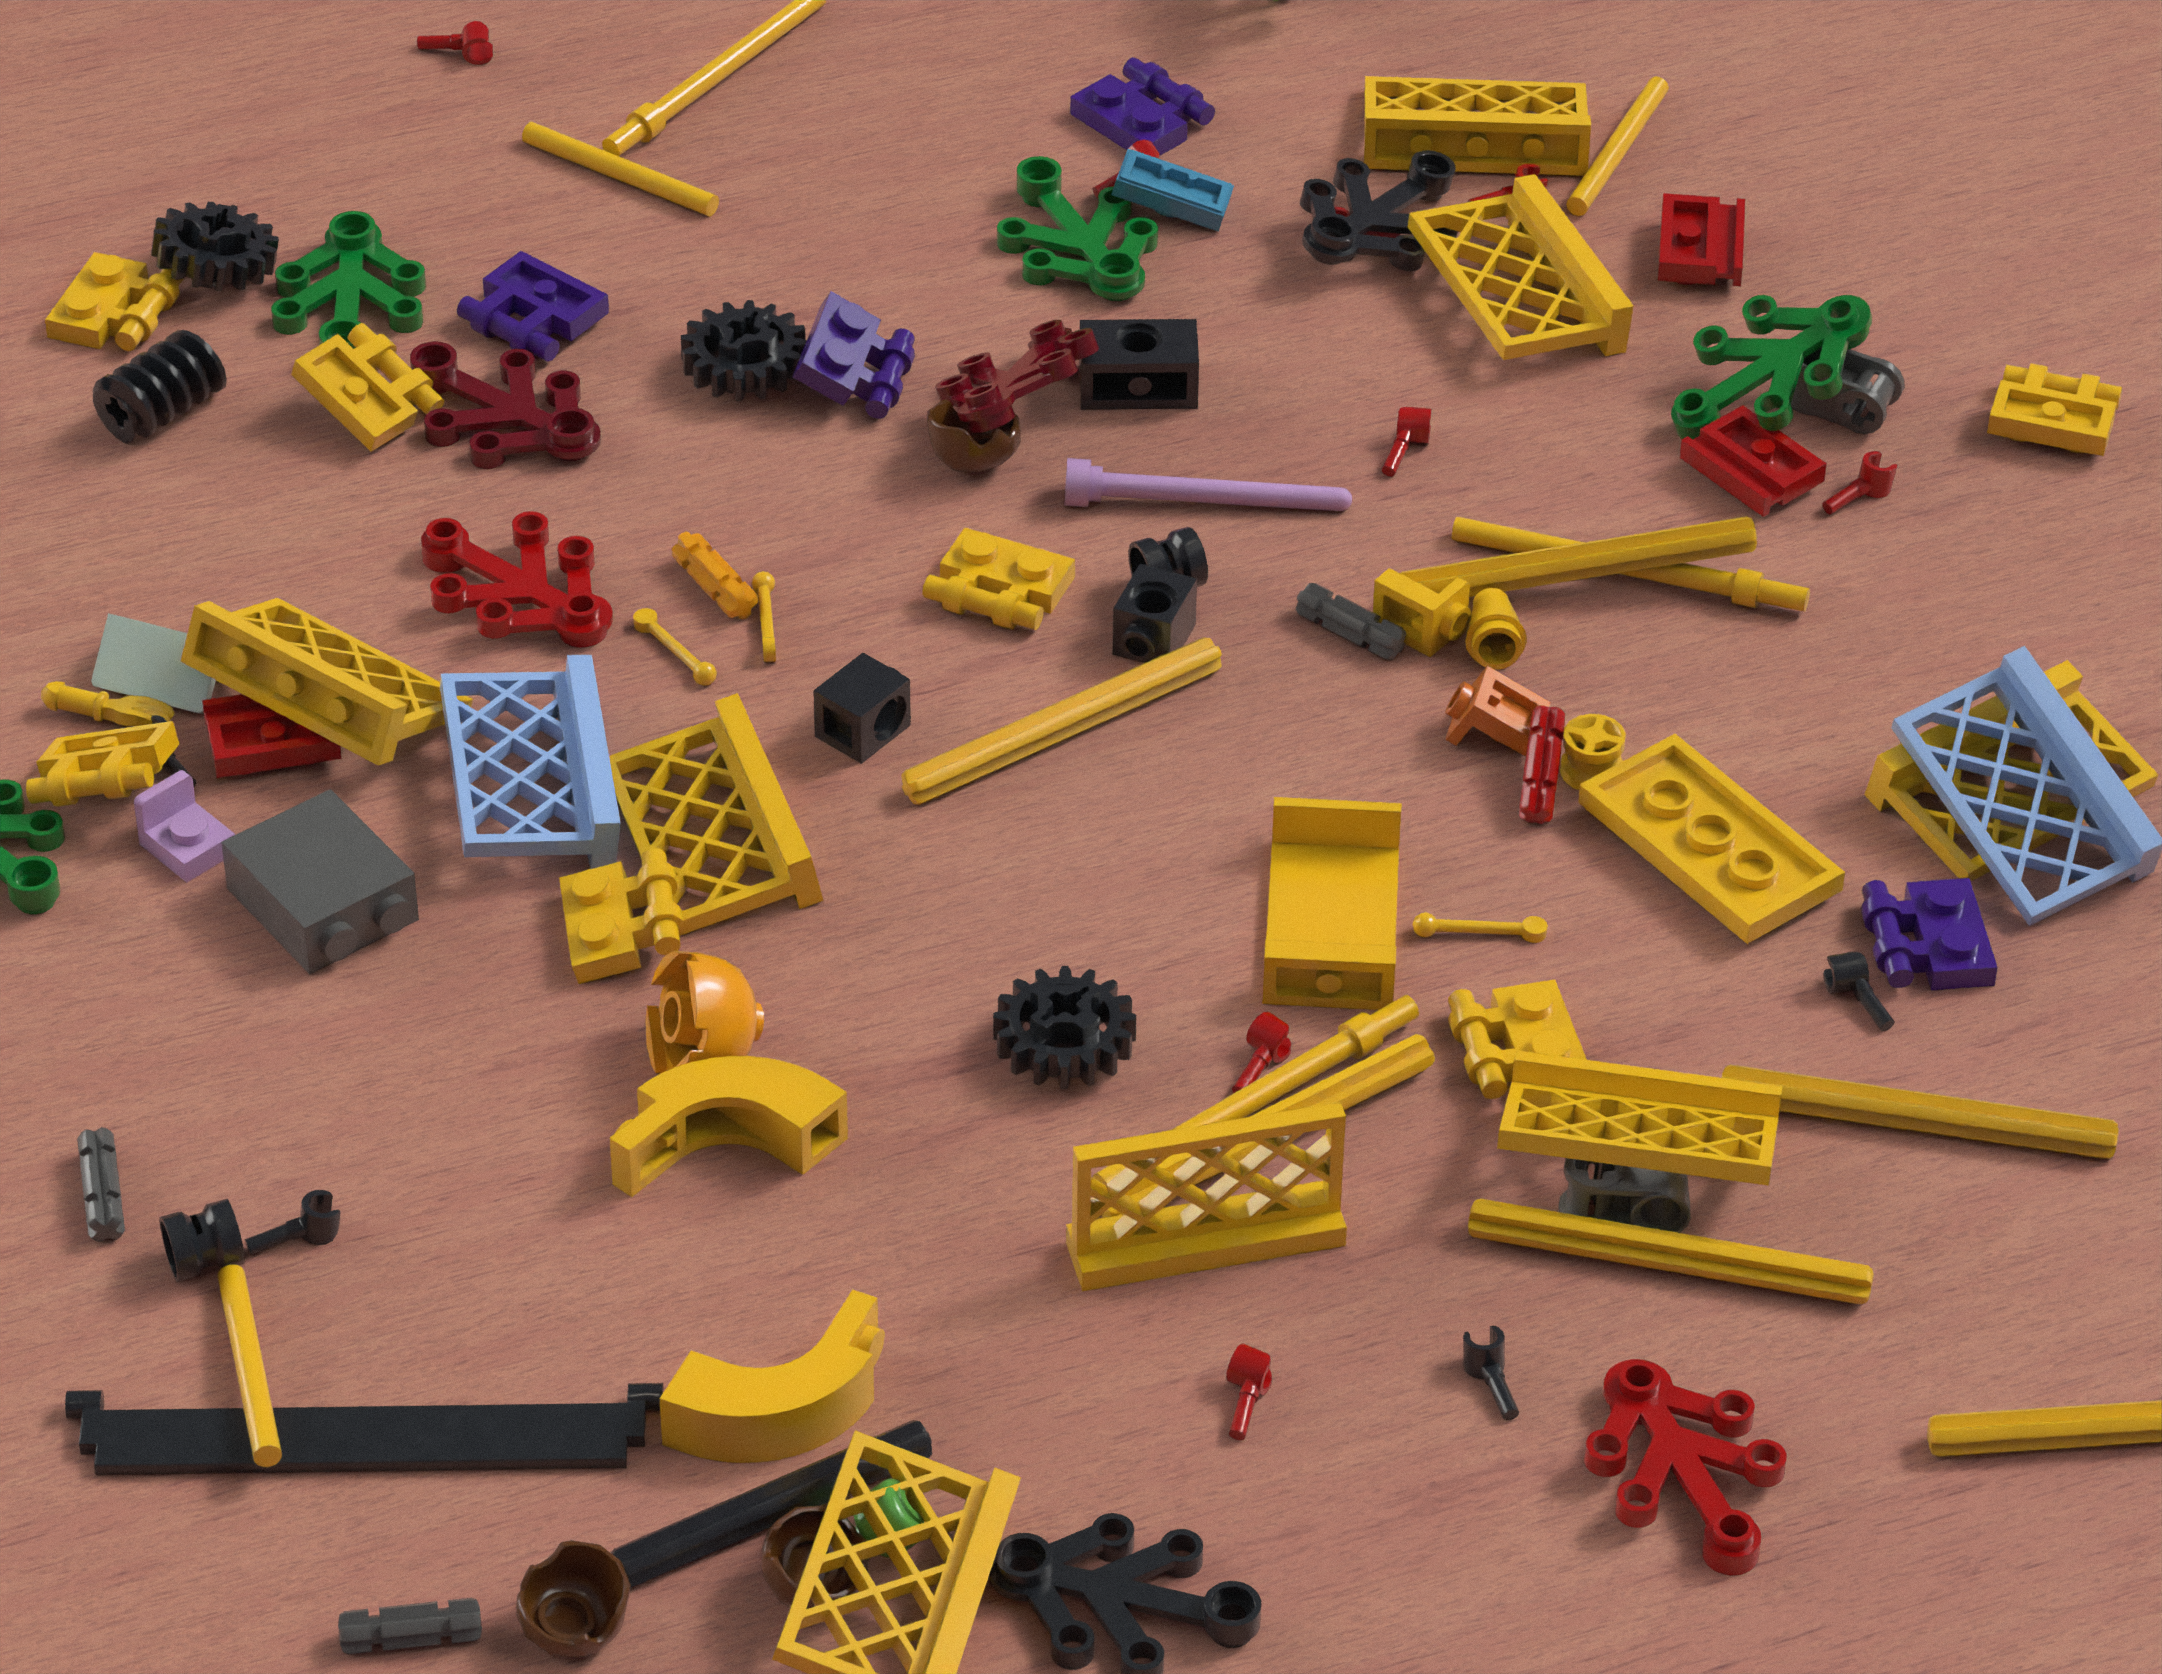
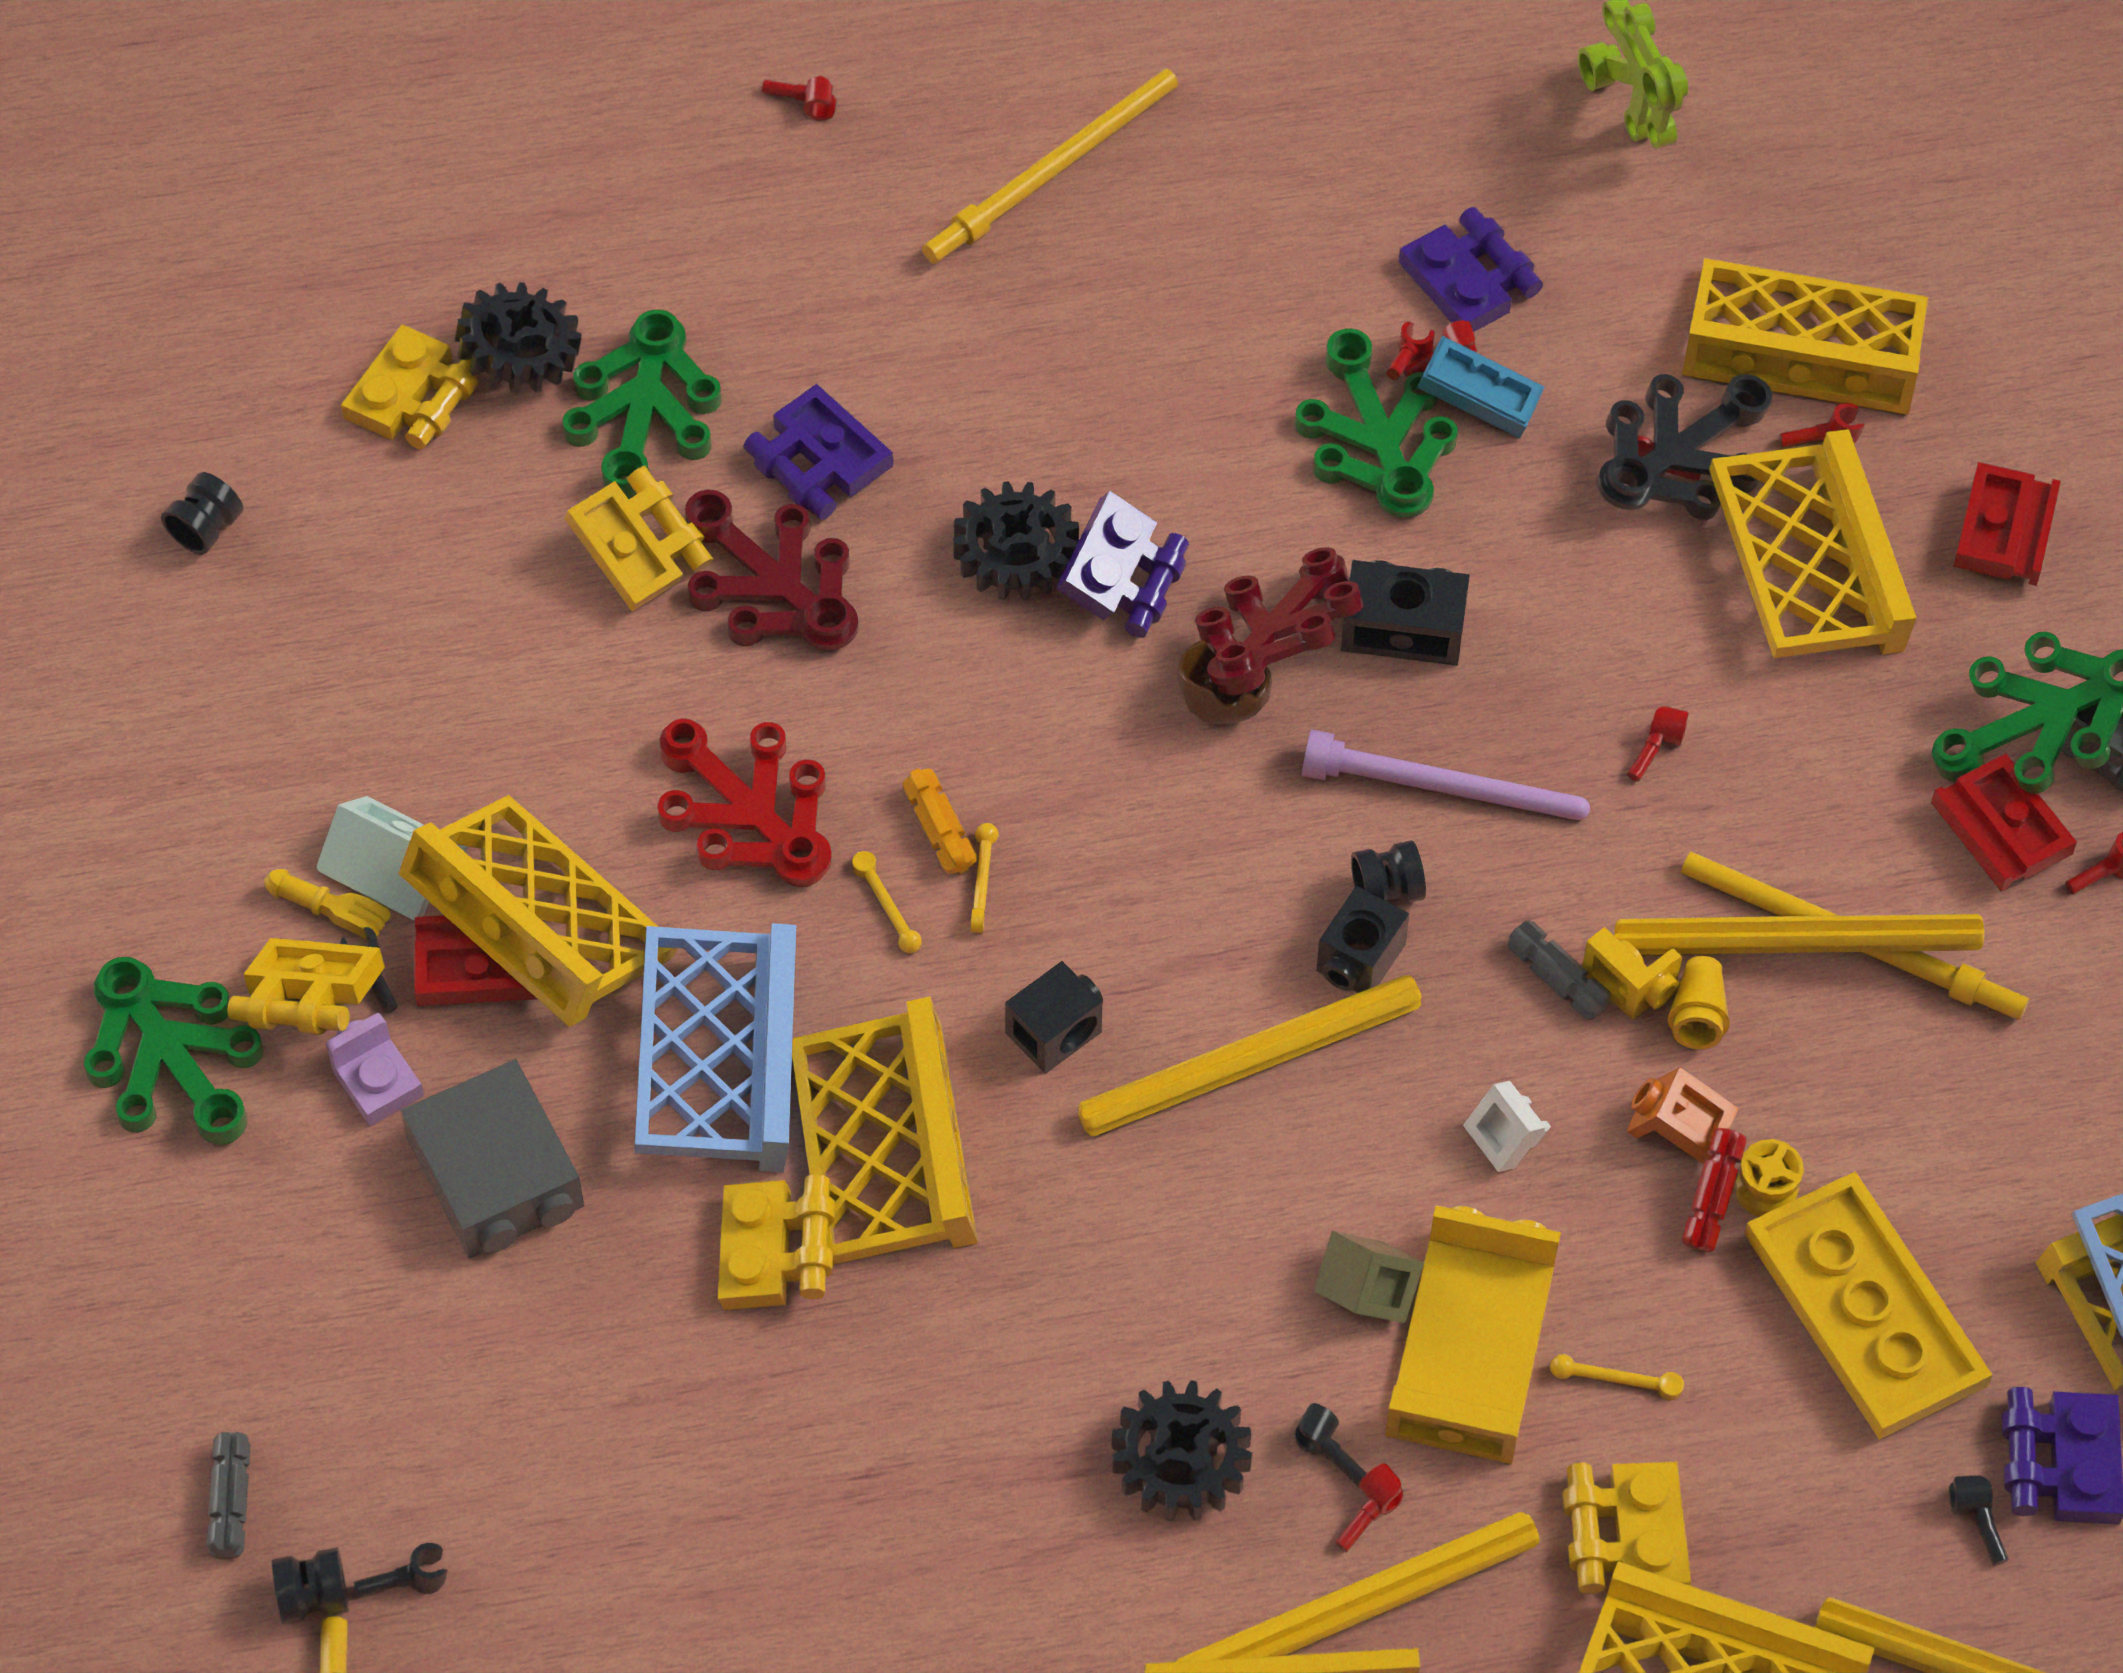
camera: 10 degrees right, 15 degrees up
(158, 385) = (434, 507): black piece -> none
(620, 169) = (936, 280): yellow bar -> none
(701, 1011) = (829, 1394): light orange cylinder -> none
(729, 1102) = (836, 1494): yellow arch -> none
(1000, 579) = (1226, 853): yellow plate -> none
(1098, 169) = (1409, 350): none -> red hand
(1195, 1005) = (1315, 1435): none -> black hand
(1219, 869) = (1368, 1277): none -> olive panel
(1327, 740) = (1505, 1126): none -> white tile
(1354, 1039) = (1467, 1501): yellow bar -> none
(1617, 146) = (1945, 382): yellow bar -> none

